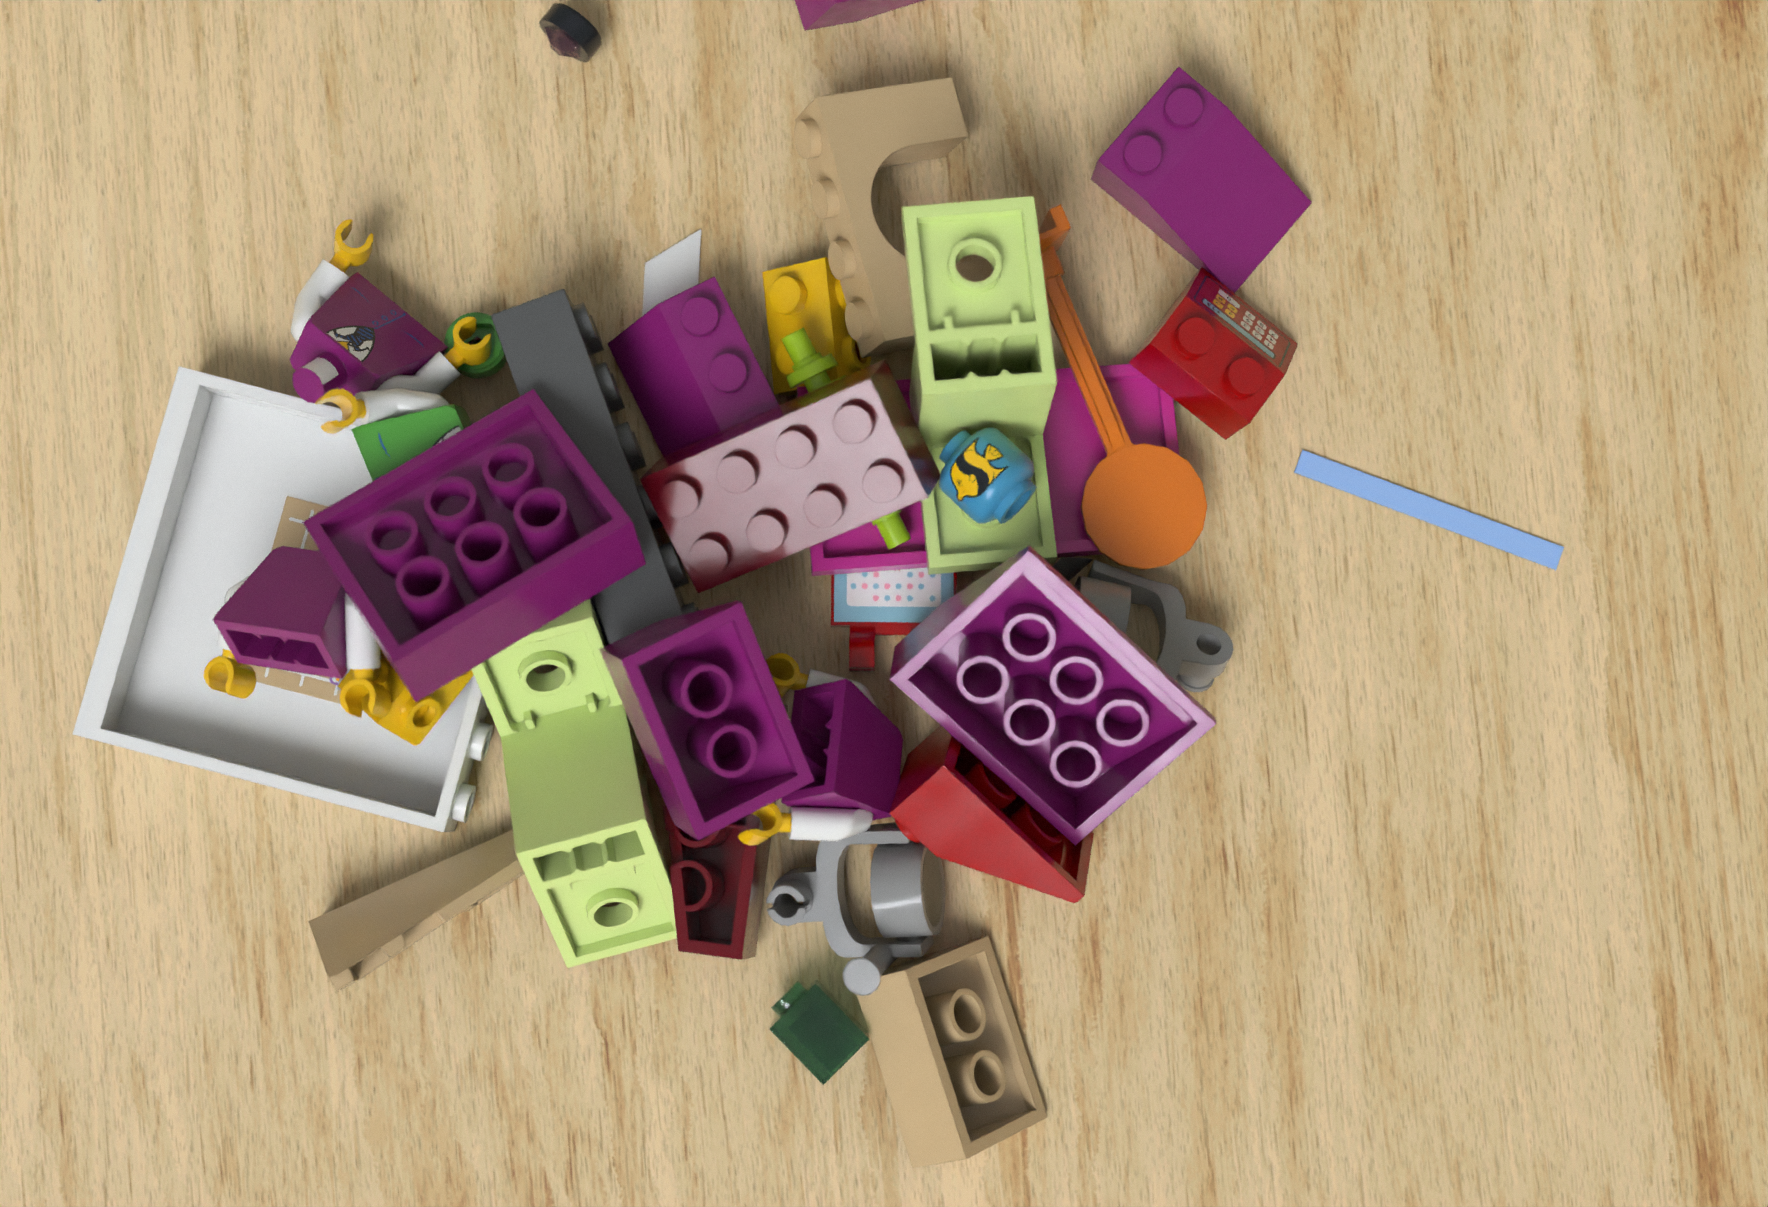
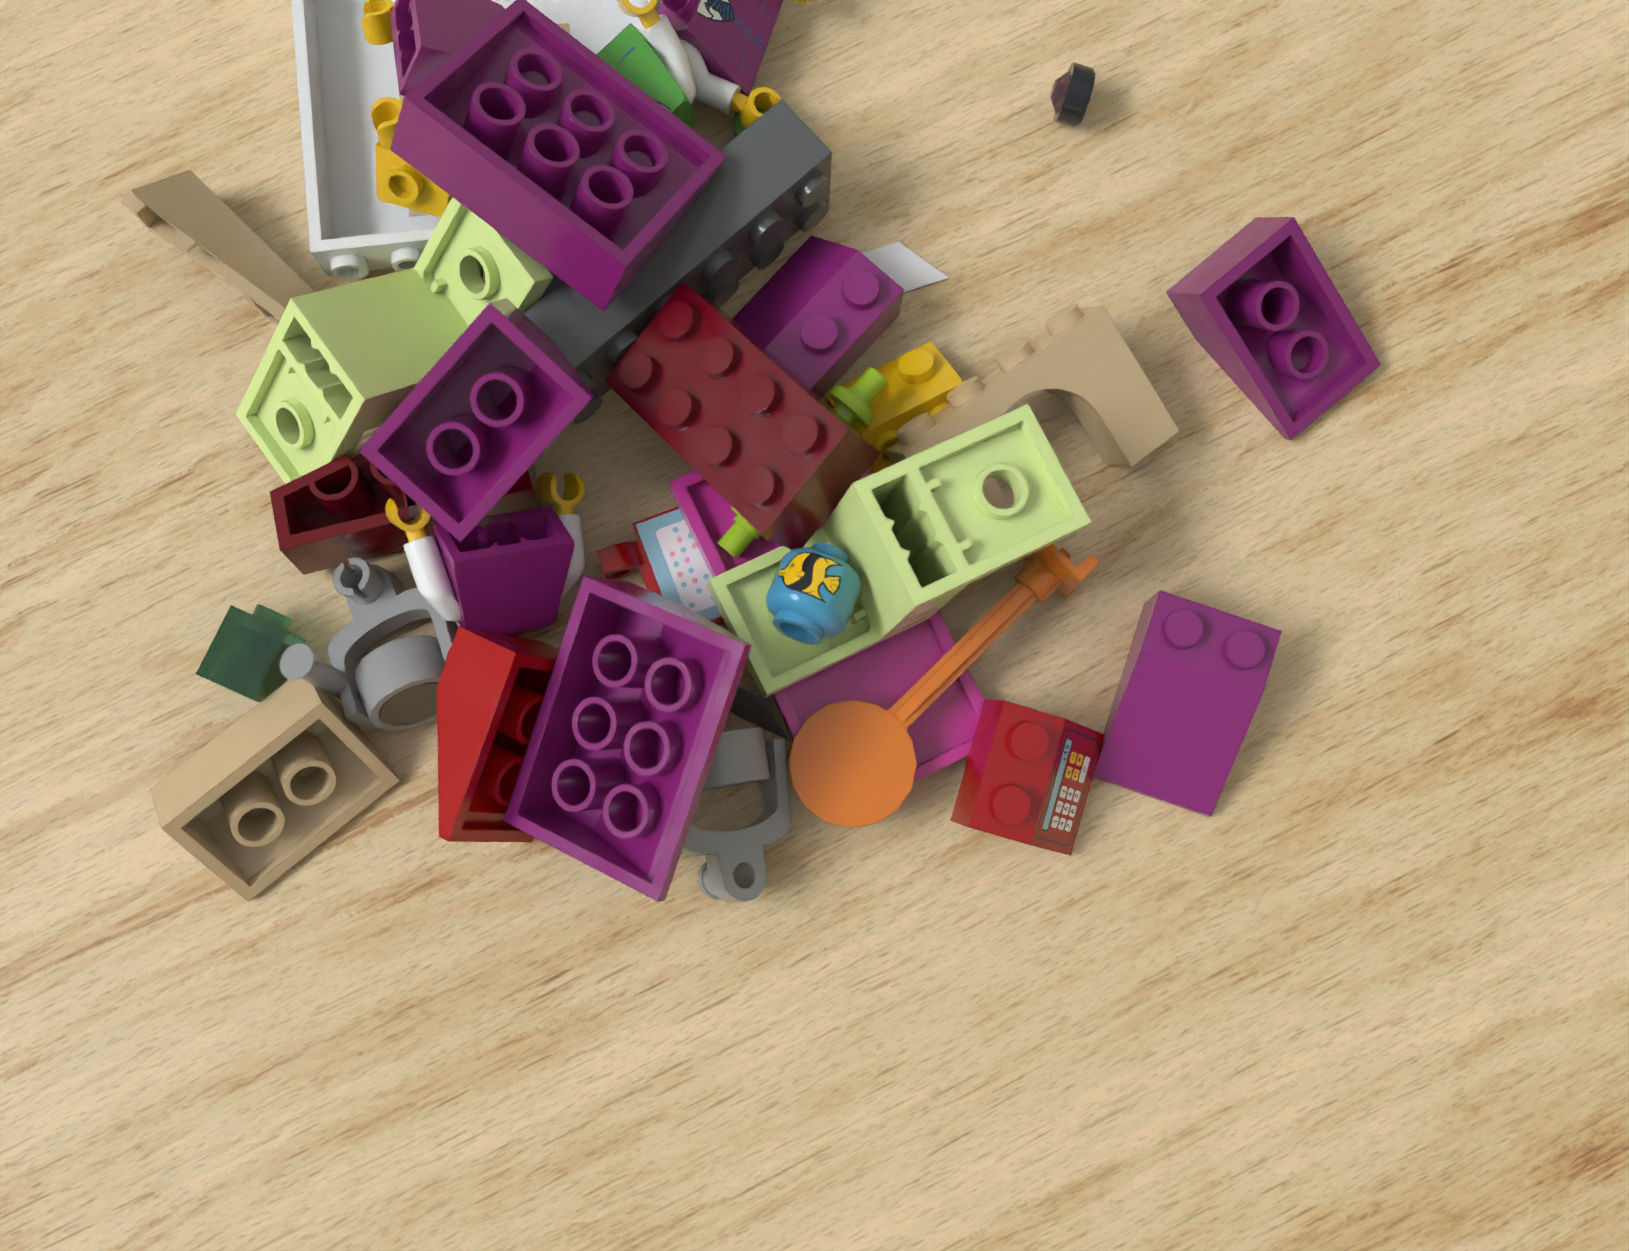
camera: 70 degrees right, 5 degrees down
(1429, 509) = (965, 1048): light blue sticker -> none

